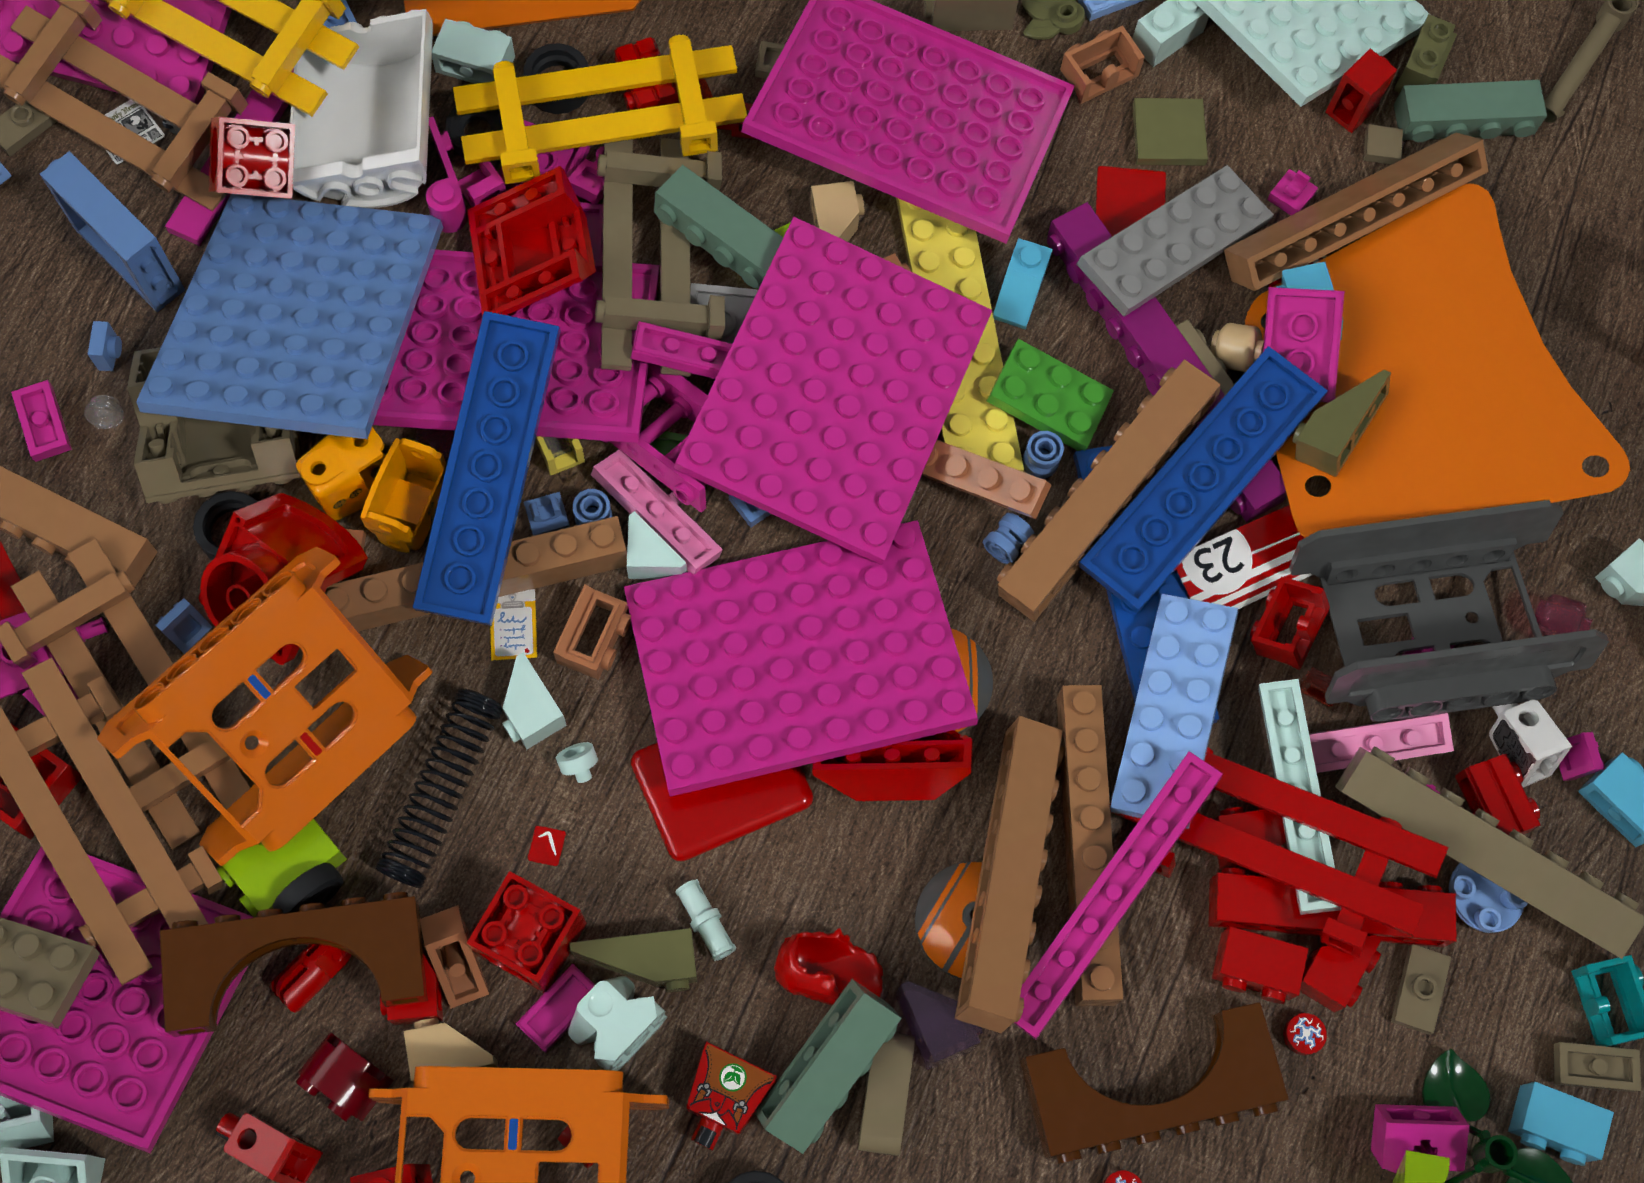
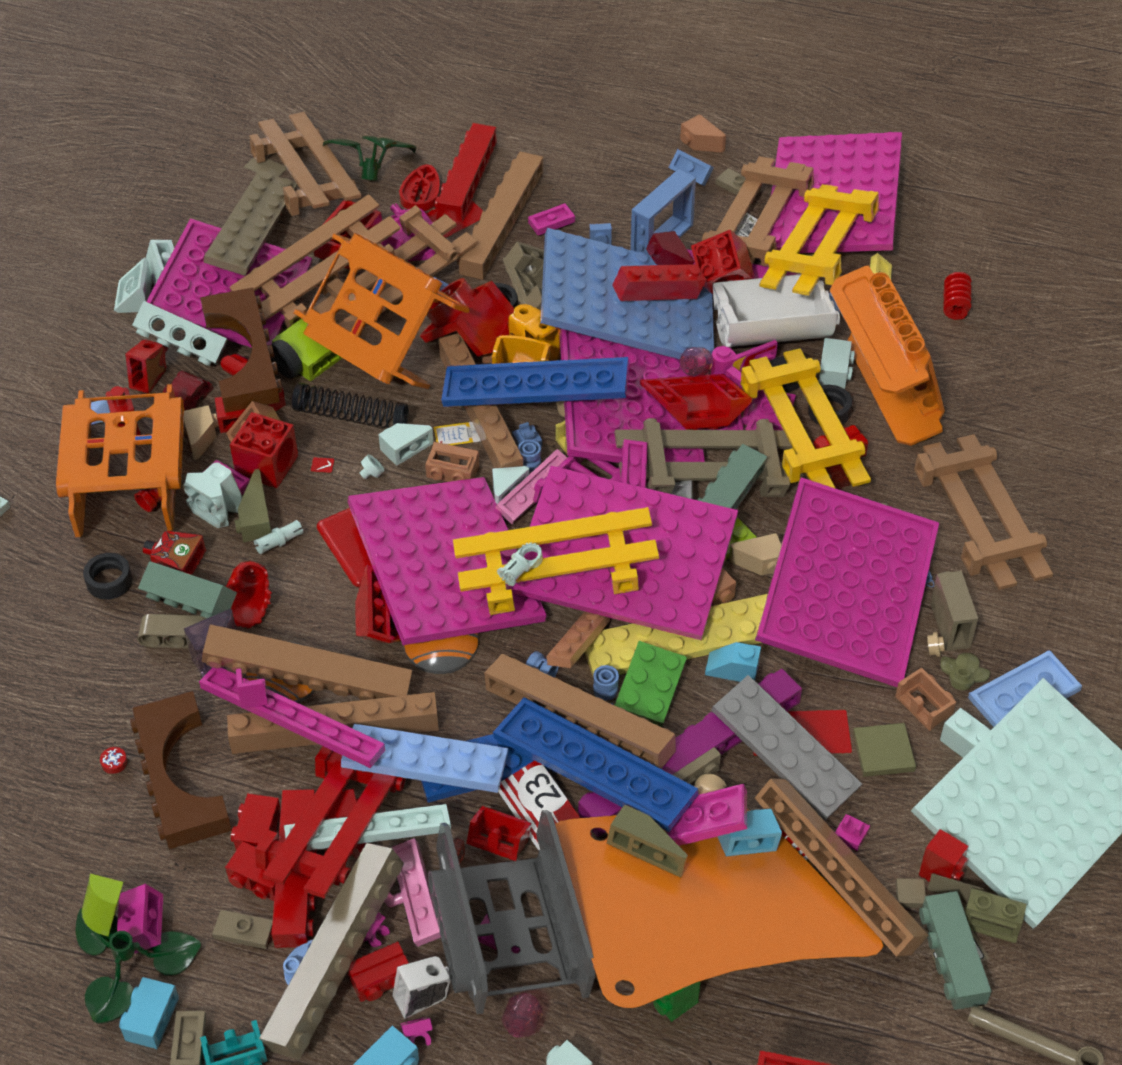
camera: 90 degrees right, 20 degrees down
(177, 1130) = (149, 314): none -> light aqua brick
(213, 230) = (668, 249): none -> dark red slope
(290, 254) = (659, 282): none -> red brick
(453, 235) = (696, 361): none -> clear pink head
(879, 390) = (617, 555): none -> yellow fence
(887, 522) = (519, 564): none -> light aqua connector
(1012, 34) = (936, 644): none -> tan plate
(1079, 947) = (252, 692): none -> dark pink panel
(1305, 1034) = (212, 858): red tile -> none

